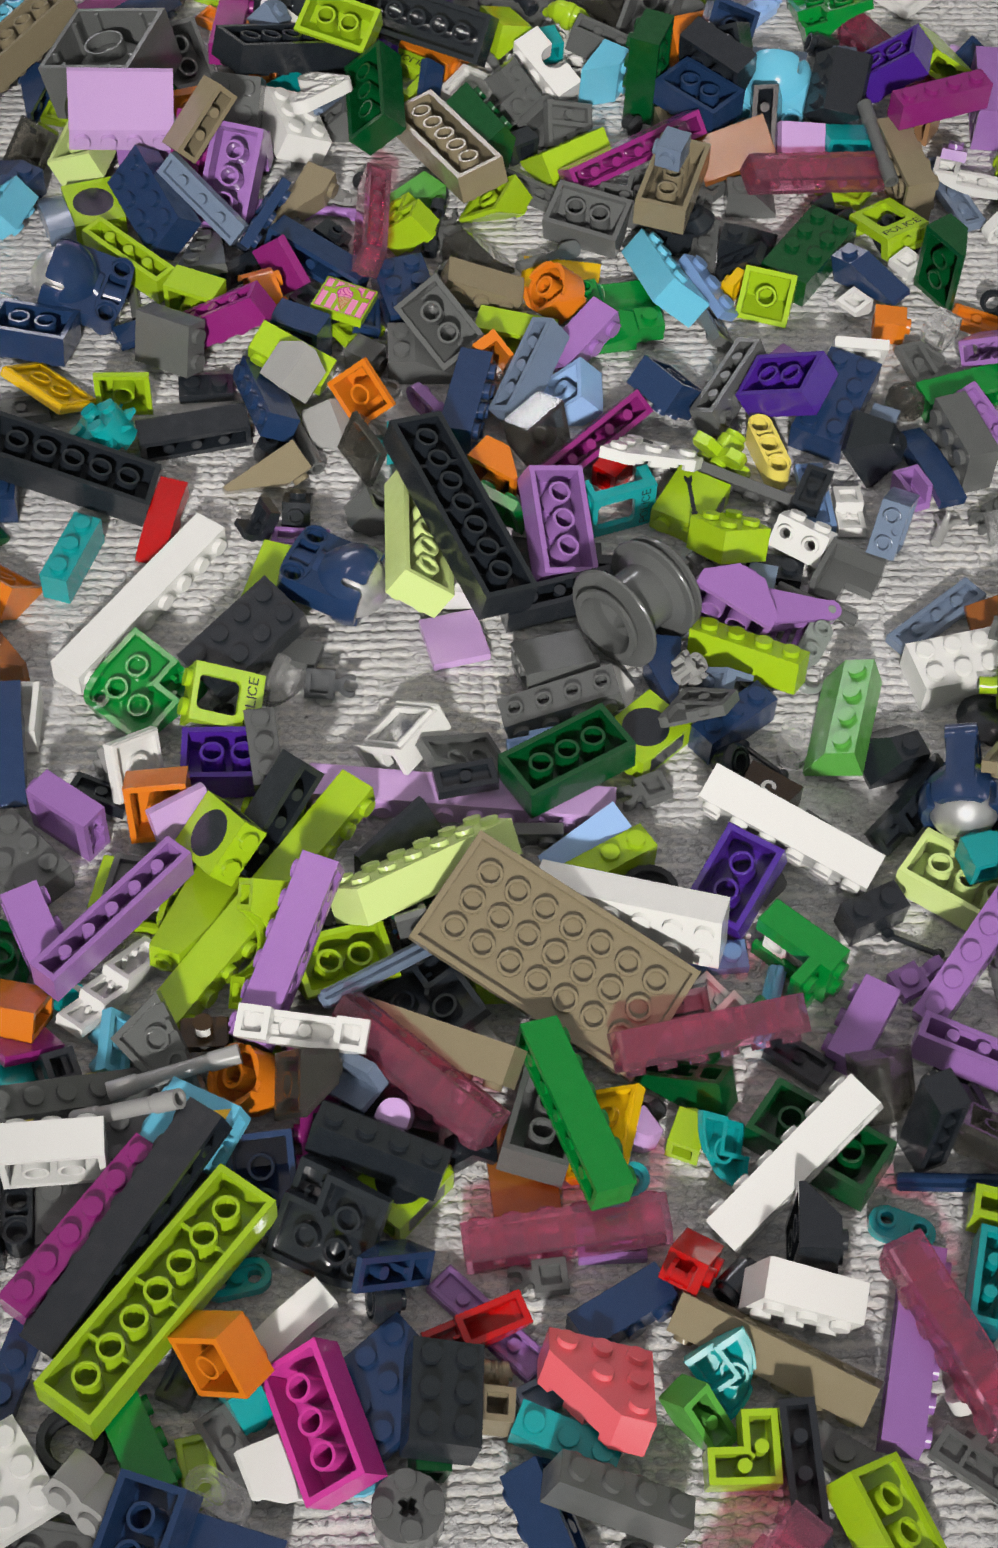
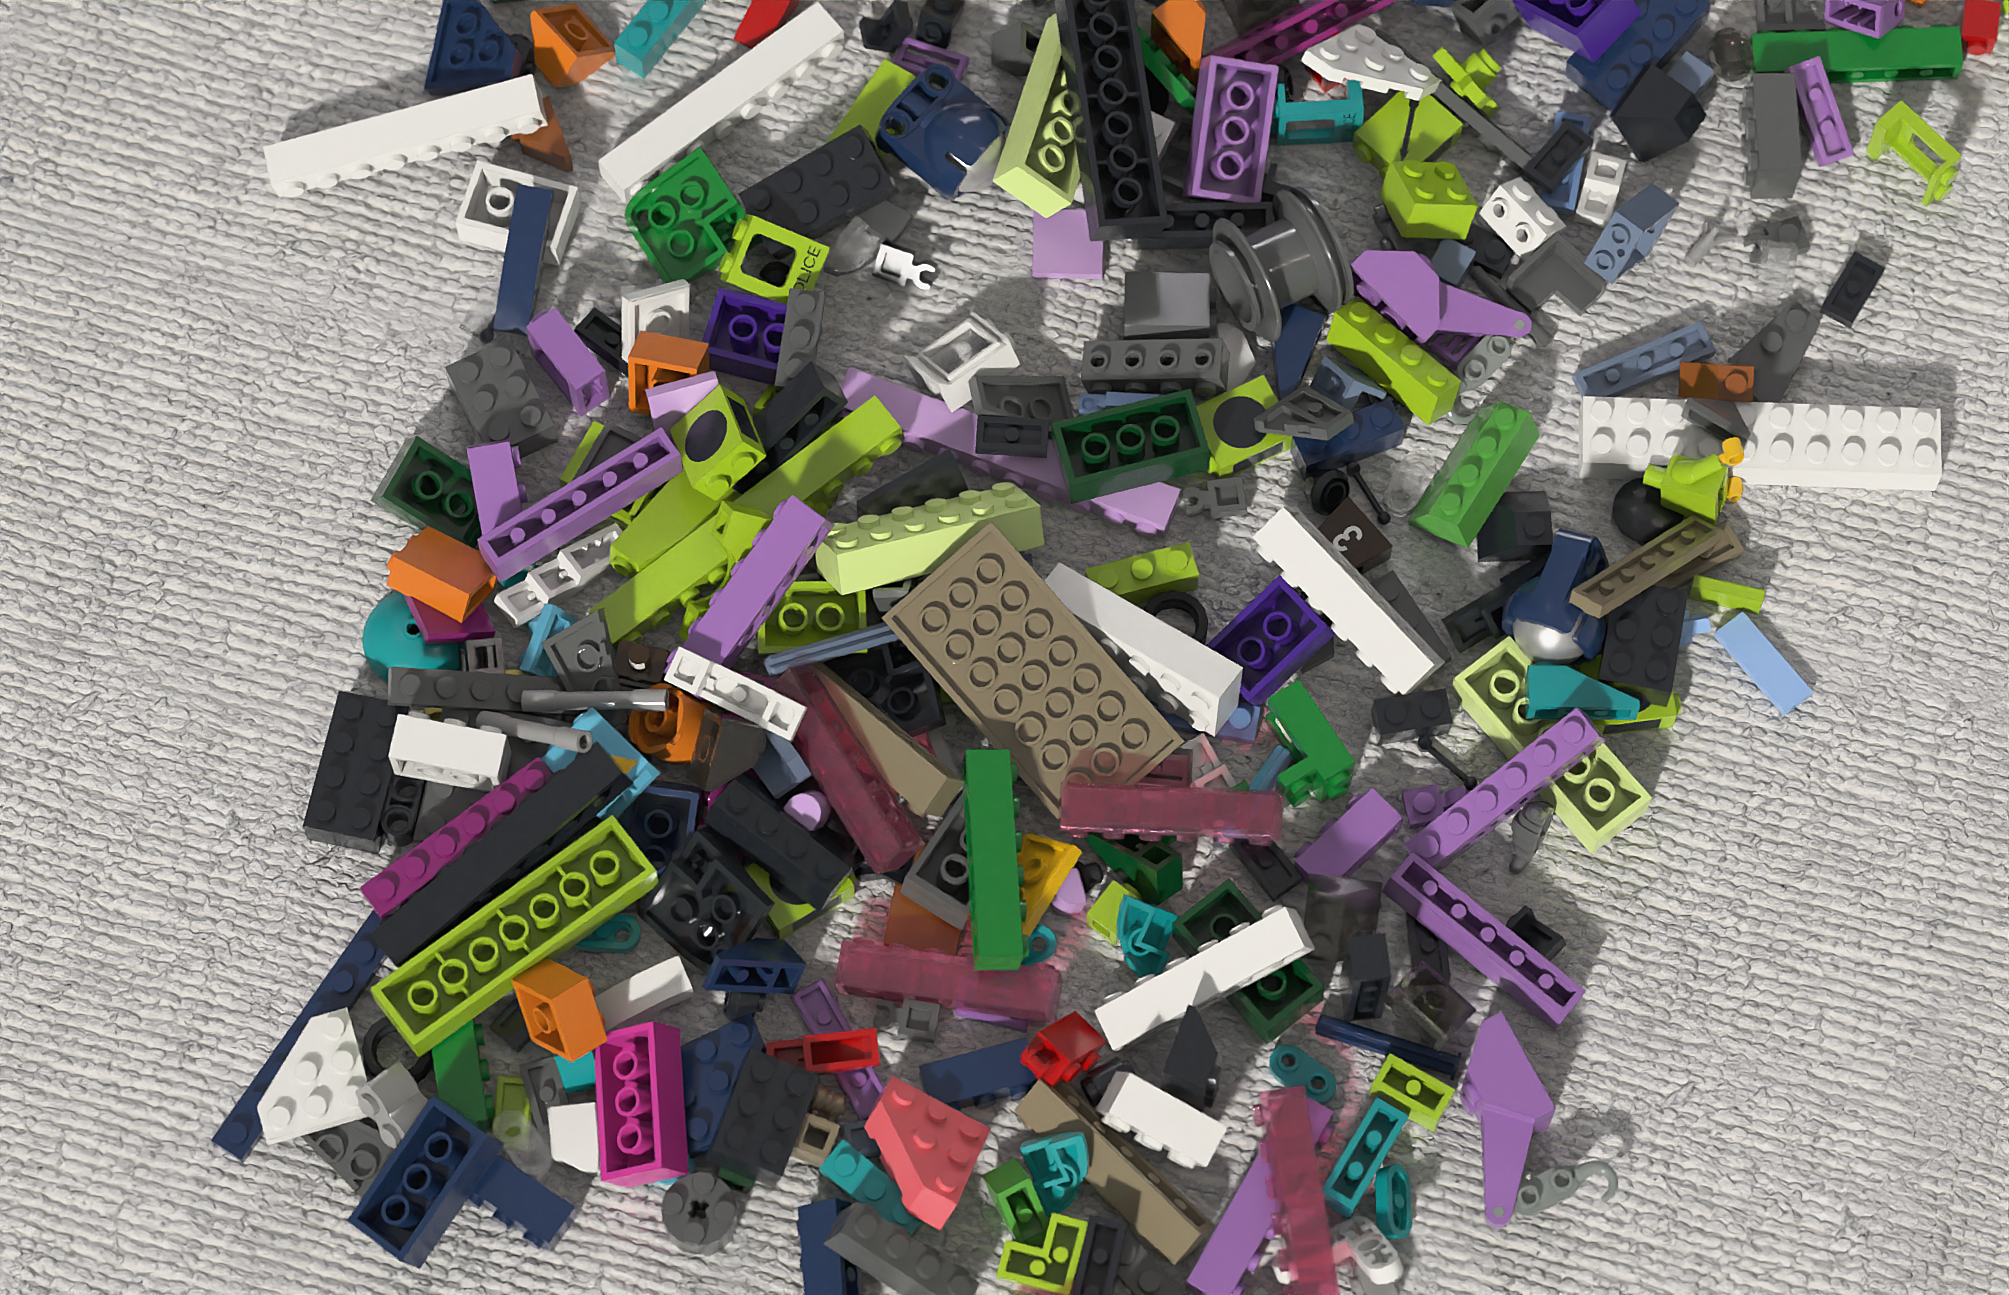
camera: 20 degrees right, 15 degrees up
(538, 834) = (1083, 523): dark grey plate -> none
(592, 832) = (1123, 542): light blue tile -> none
(689, 668) = (1314, 364): light grey gear -> none
(768, 451) = (1536, 69): light yellow beam -> none
(914, 481) = (1687, 166): medium lavender window -> none
(923, 451) = (1723, 157): dark blue slope -> none

